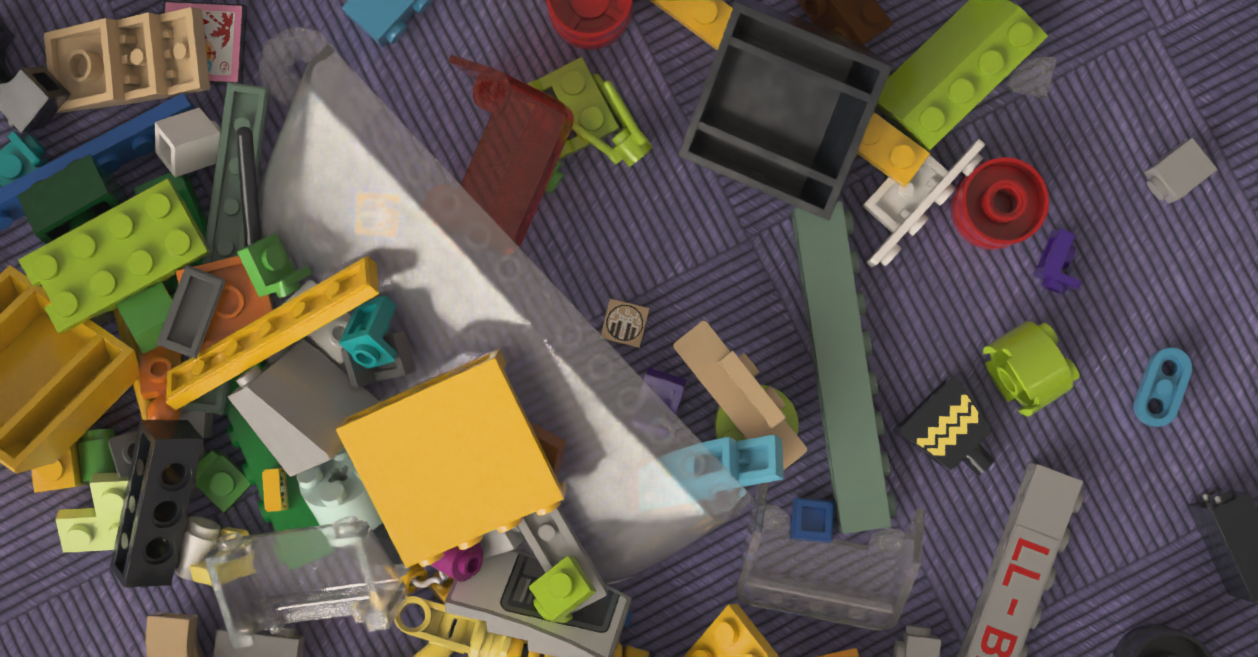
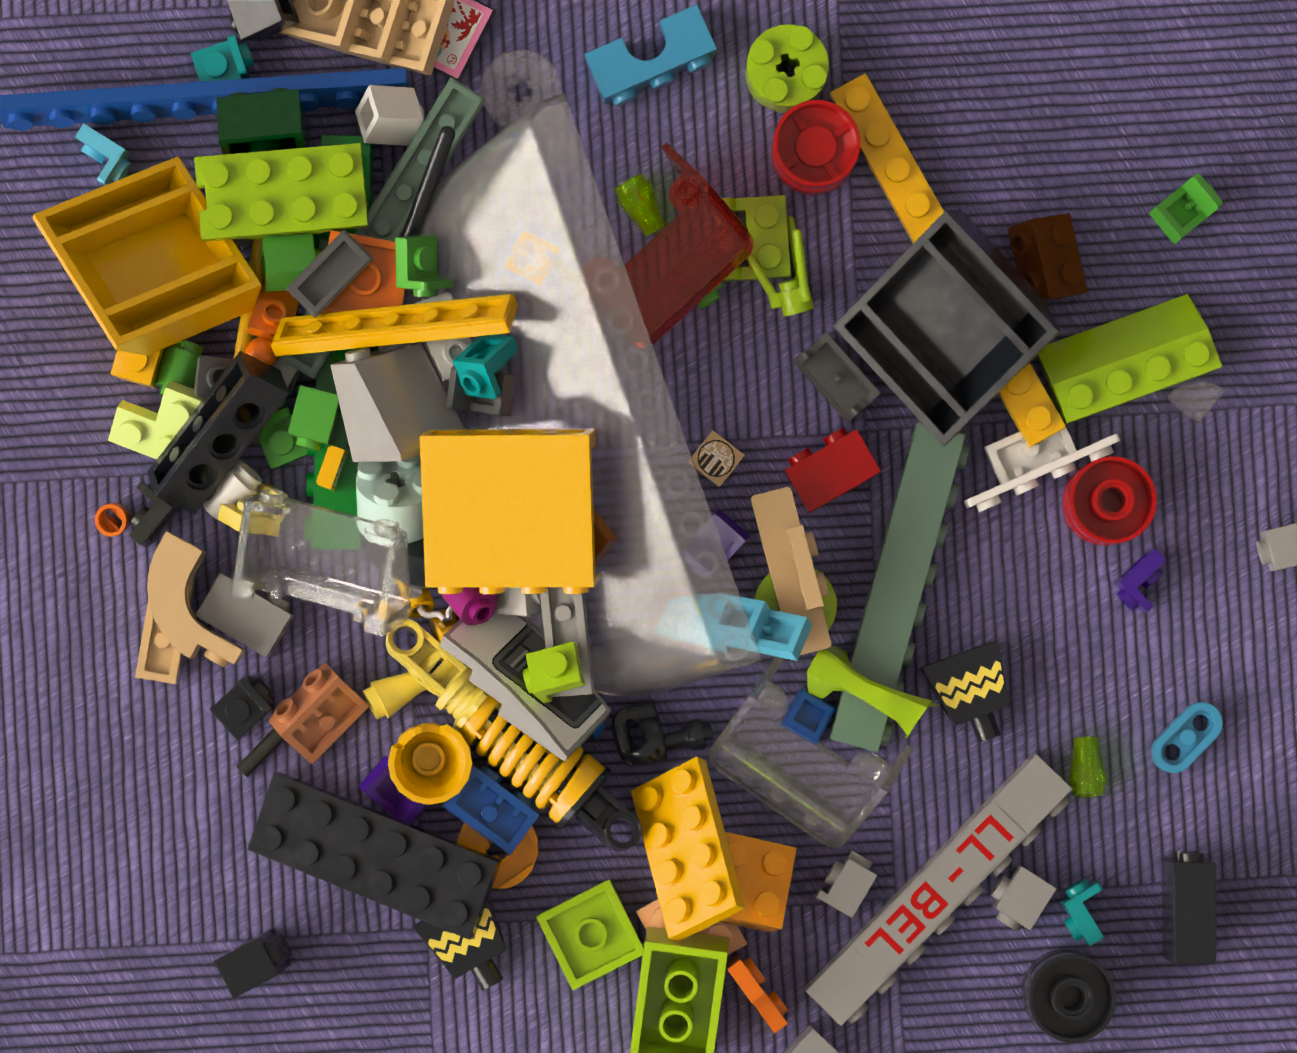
camera: 25 degrees right, 0 degrees up
(95, 628) = (107, 524): none -> orange hinge
(134, 609) = (151, 520): none -> pearl dark grey bracket
(238, 451) = (314, 418): none -> bright green brick
(453, 122) = (640, 203): none -> clear neon green cone
(685, 606) = (655, 742): none -> black piece
(701, 201) = (837, 377): none -> dark grey hinge
(734, 288) = (831, 470): none -> red brick
(819, 471) = (834, 672): none -> lime animal
(1030, 366) = (1070, 663): lime brick -> none
(1079, 600) = (1021, 898): none -> light grey brick
(1086, 455) = (1087, 769): none -> clear neon green cone
(1142, 597) = (1080, 921): none -> teal bracket

